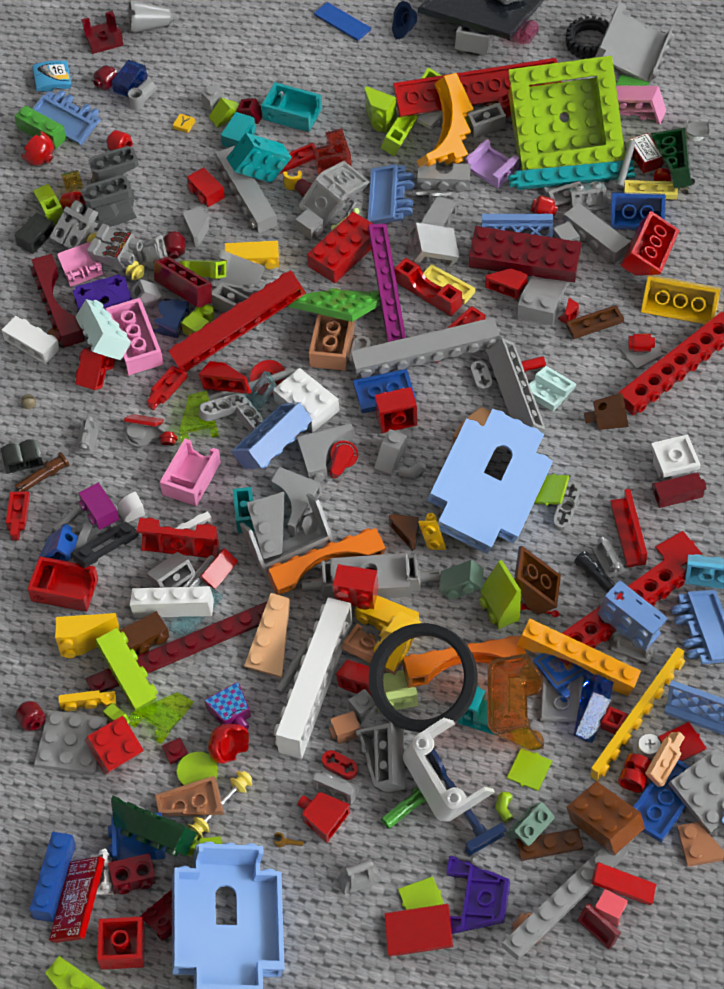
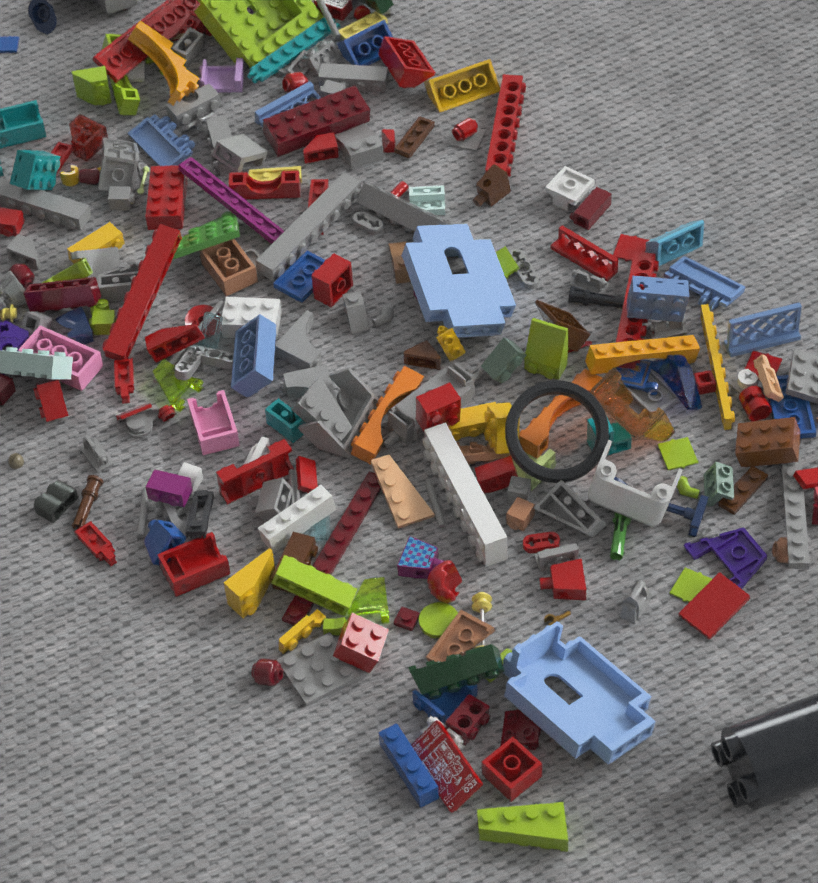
camera: 40 degrees left, 5 degrees down
(342, 458) = (323, 338): red piece -> none

